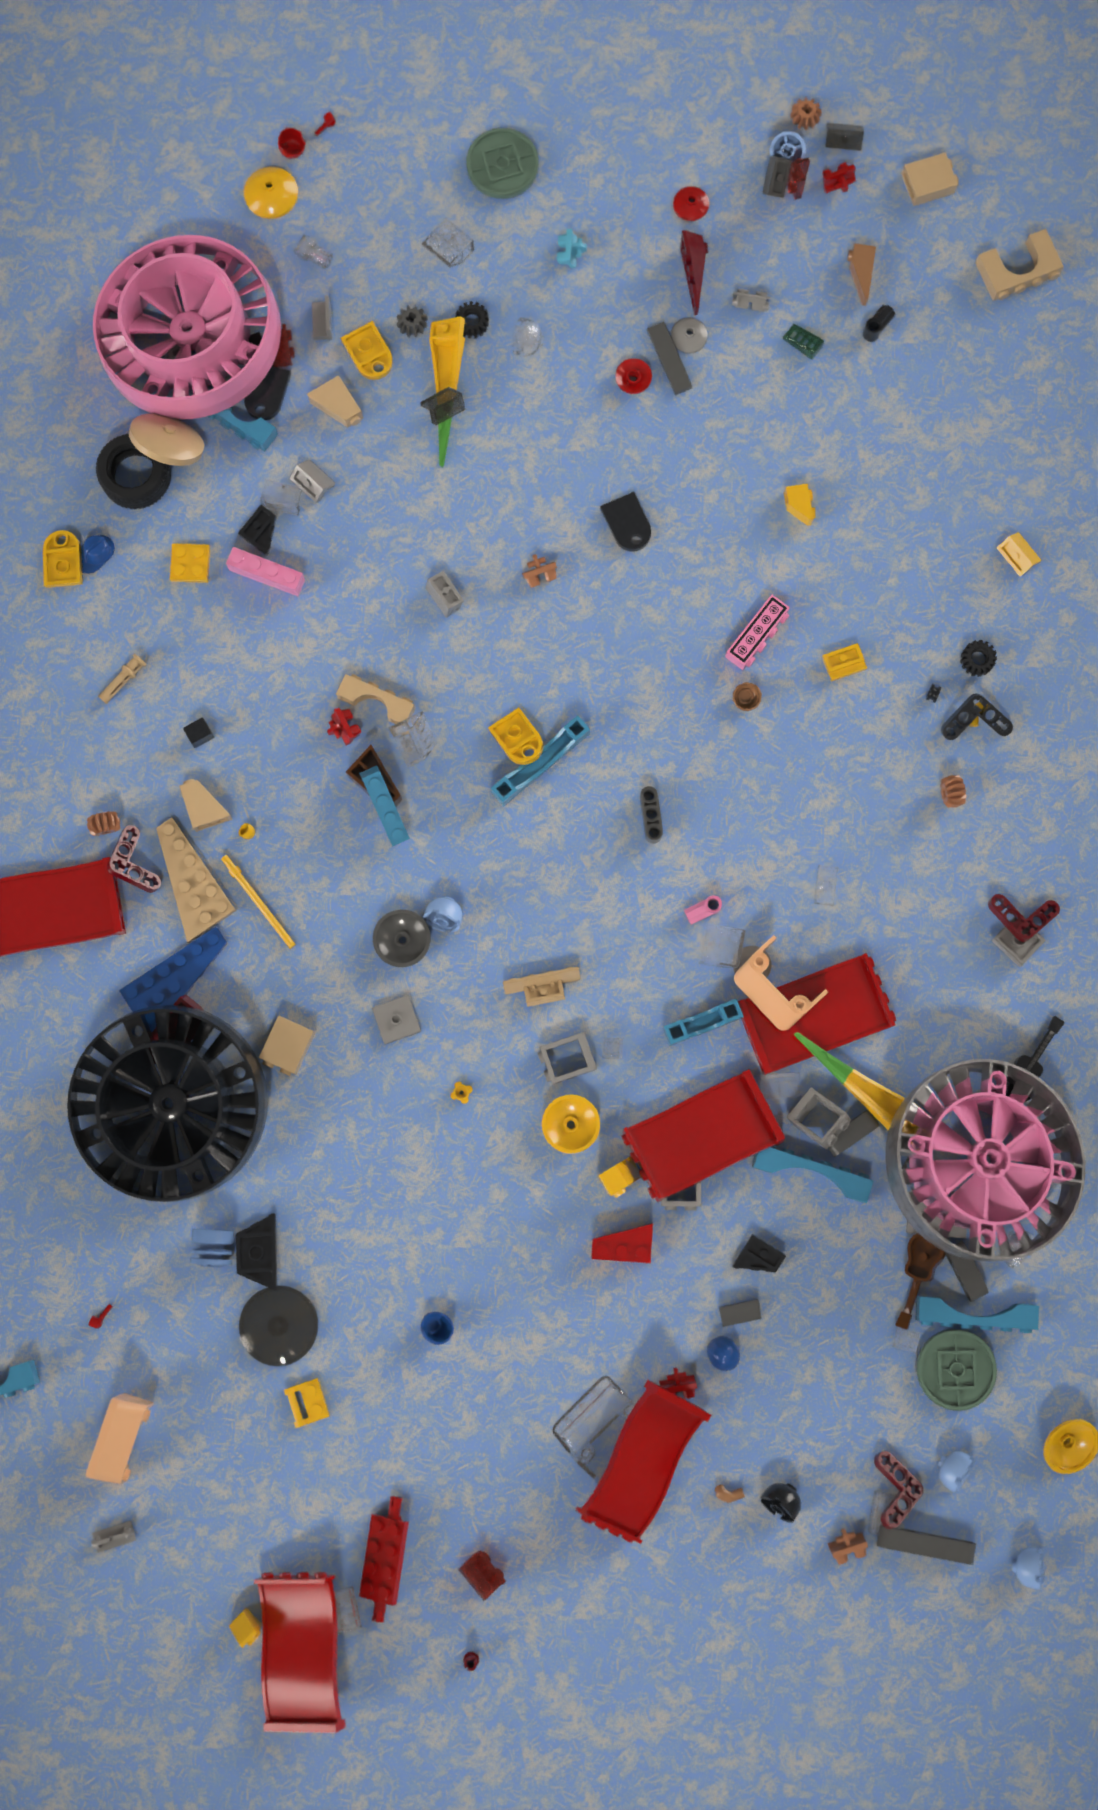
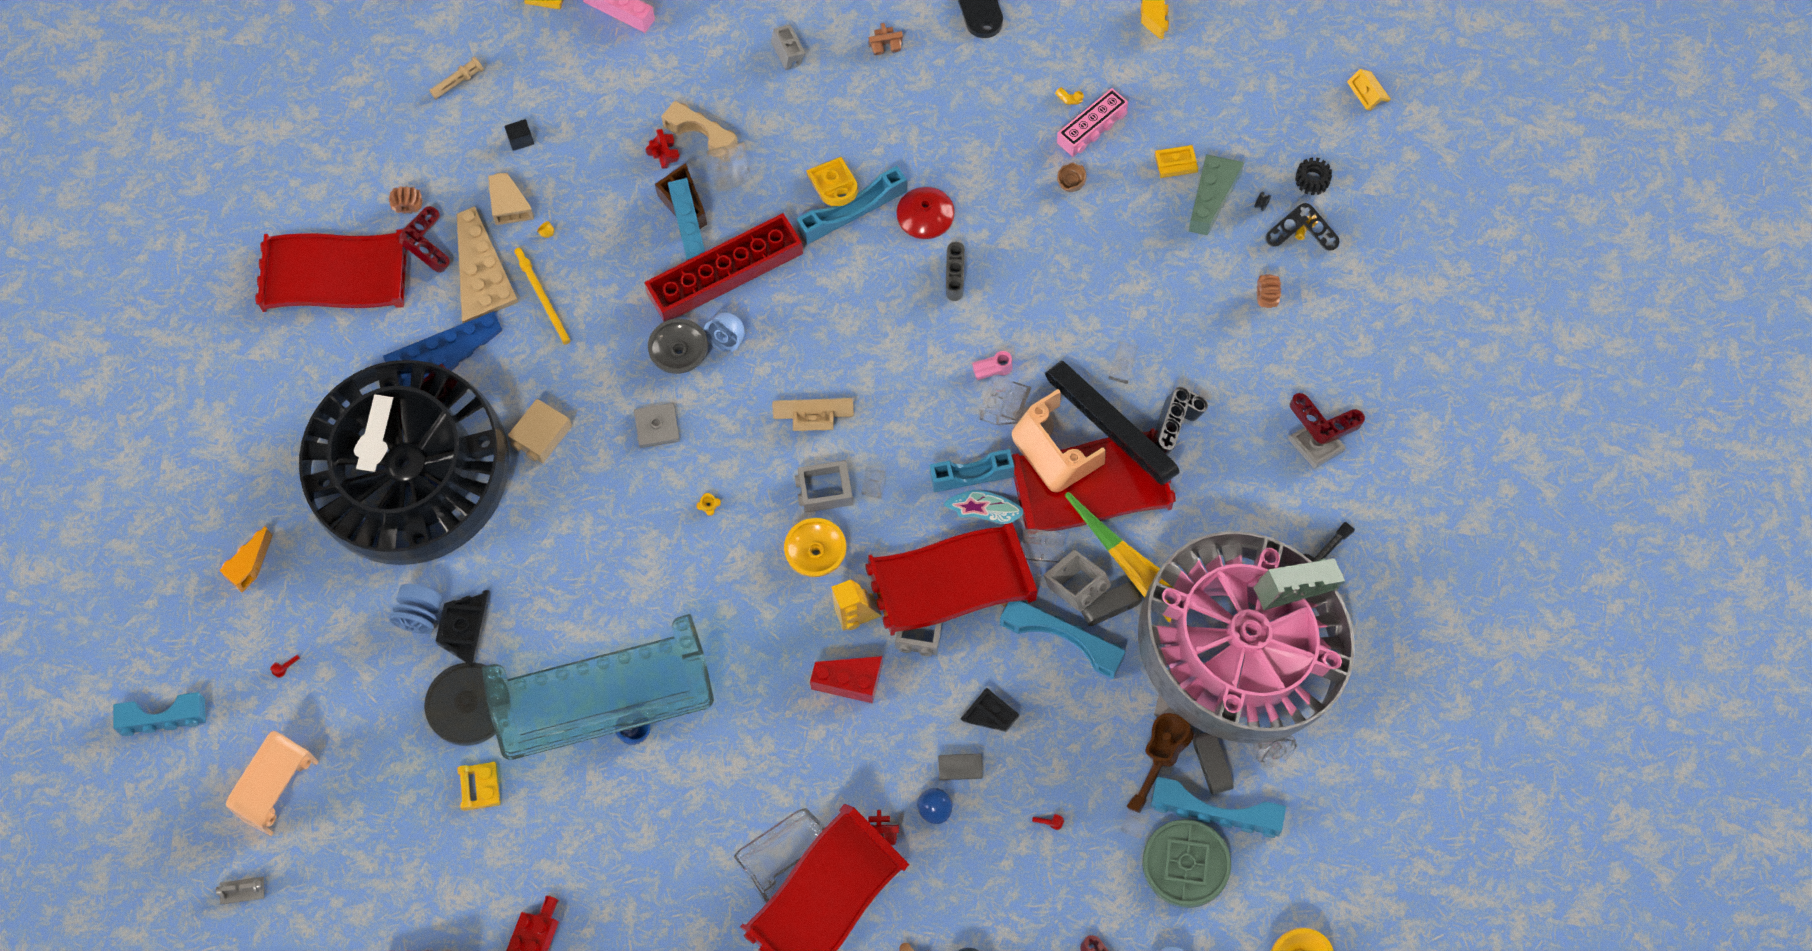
camera: 10 degrees right, 15 degrees down
(41, 1224) = (247, 562): none -> light orange slope
(136, 1106) = (370, 445): none -> white sticker
(400, 1304) = (599, 694): none -> clear light blue windscreen
(429, 848) = (723, 268): none -> red brick
(611, 766) = (925, 221): none -> red dish
(720, 1054) = (984, 506): none -> sticker
(730, 608) = (1070, 99): none -> yellow arm
(827, 955) = (1112, 423): none -> black beam
(834, 1350) = (1056, 822): none -> red hand
(880, 968) = (1177, 406): none -> black beam
(885, 687) = (1215, 186): none -> sand green wedge
(1029, 1105) = (1298, 582): none -> wedge

